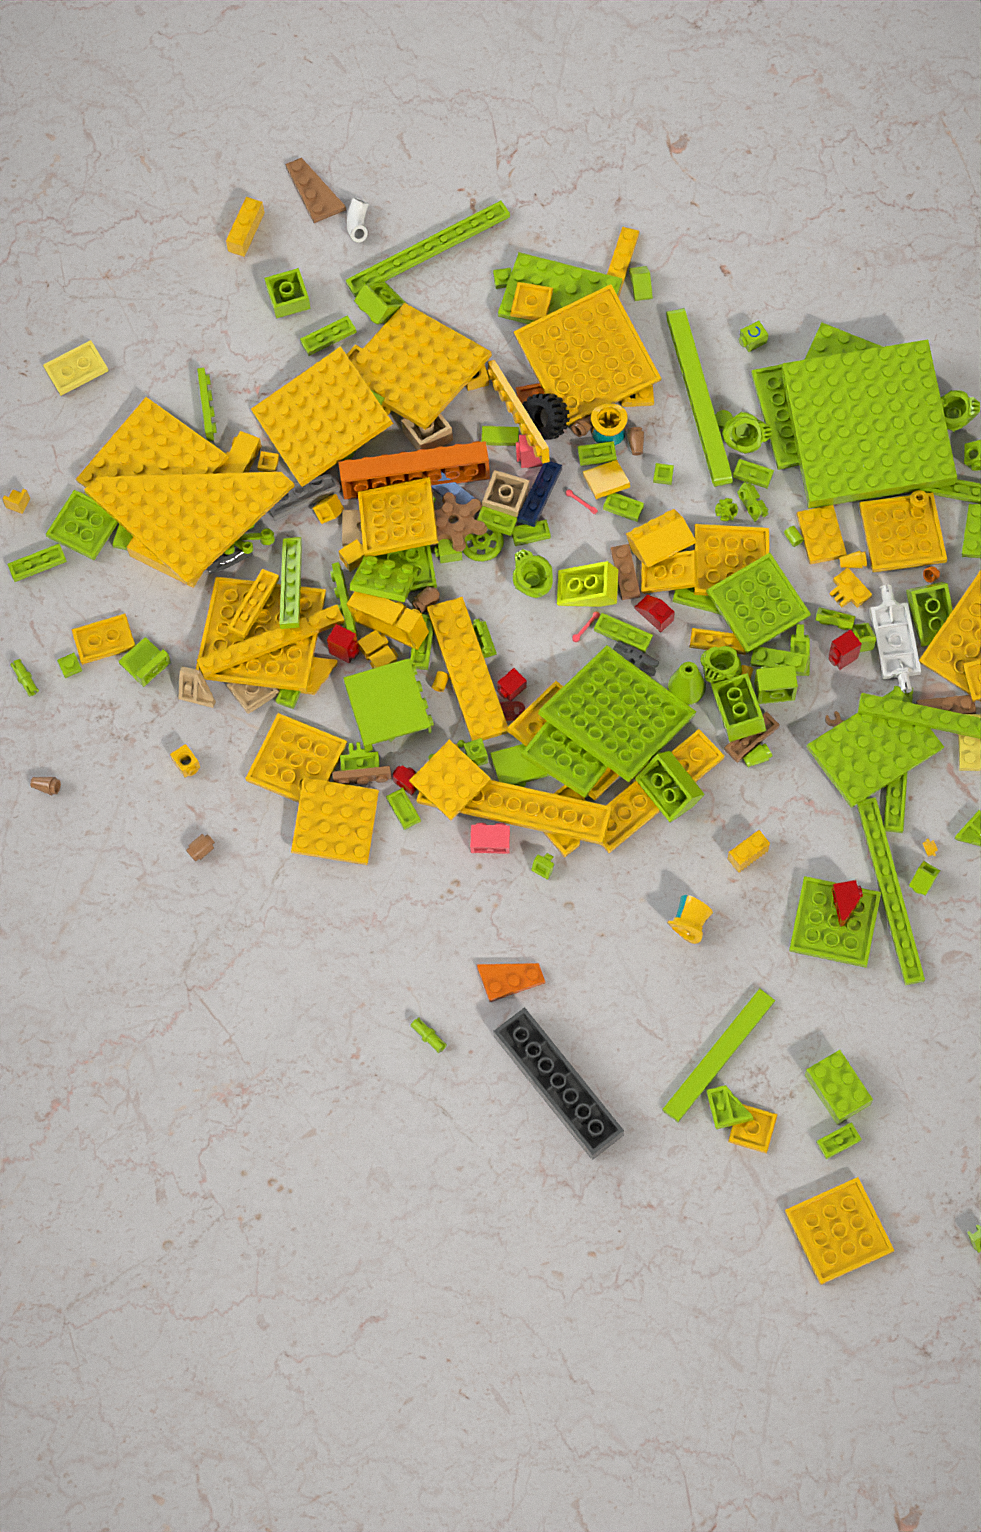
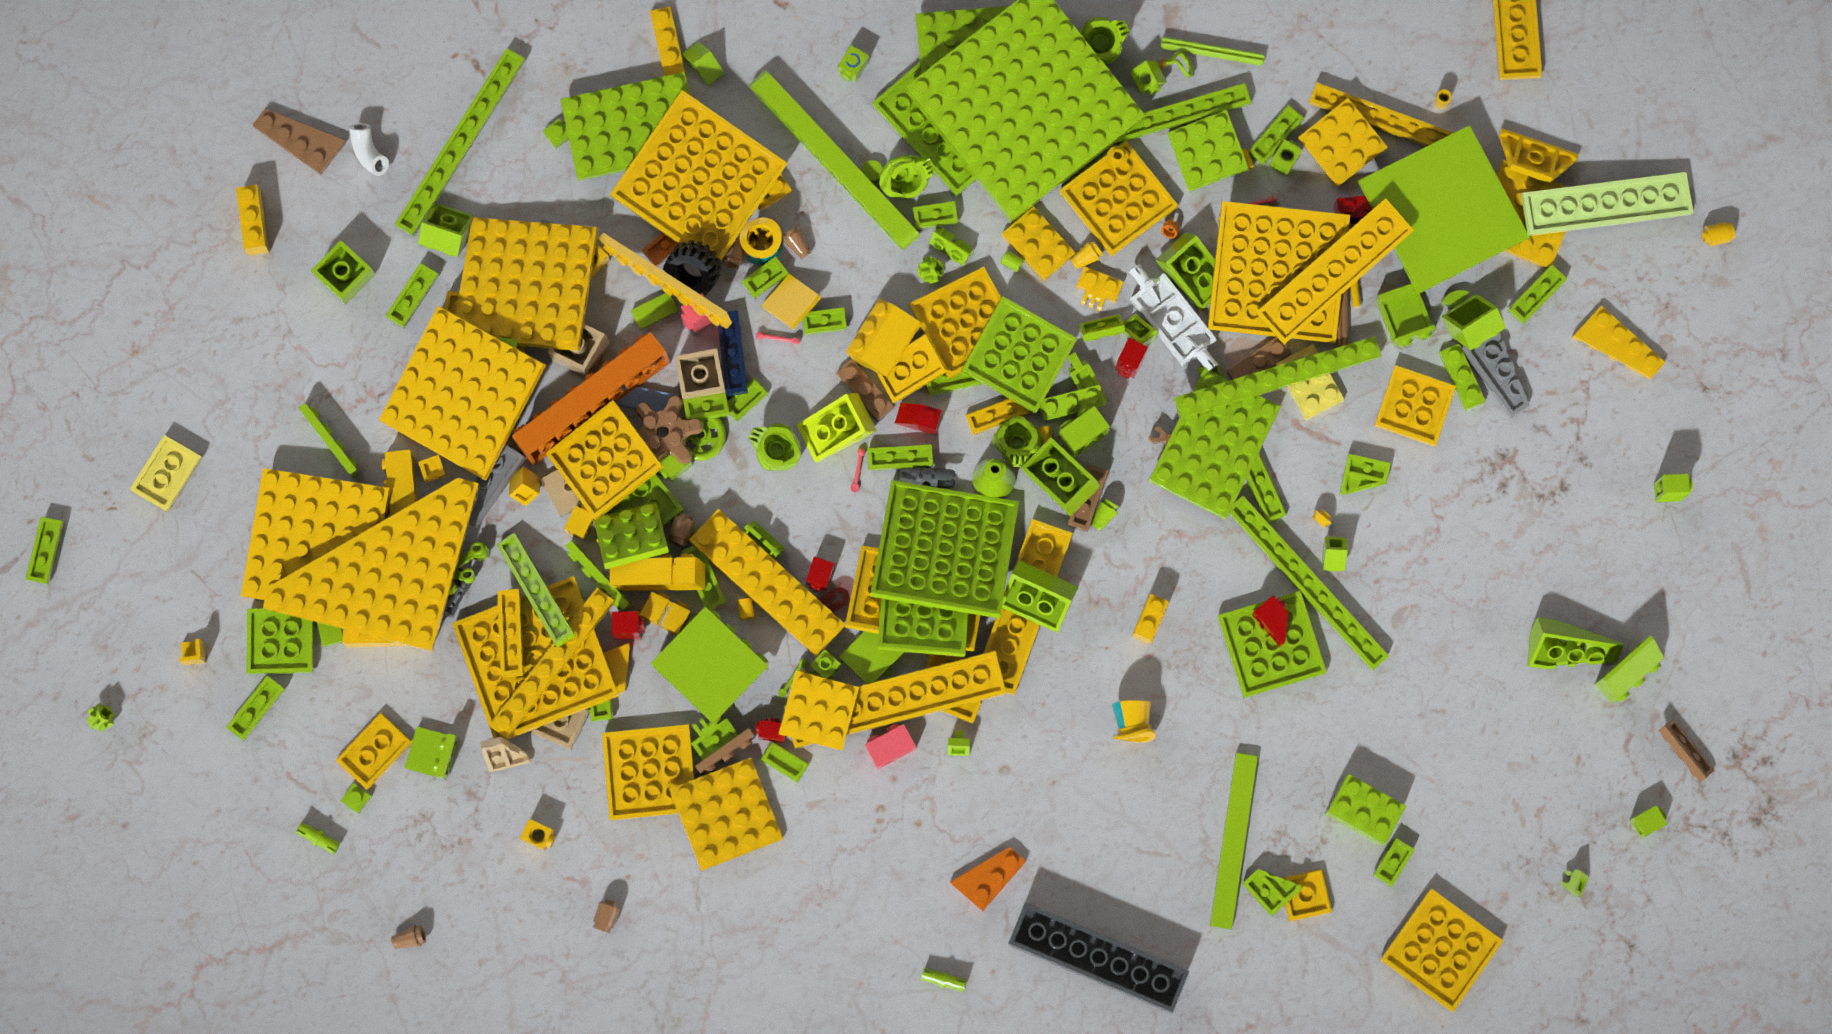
camera: 35 degrees left, 10 degrees up
(531, 301) = (607, 149): yellow tile -> none
(663, 474) = (846, 265): lime tile -> none

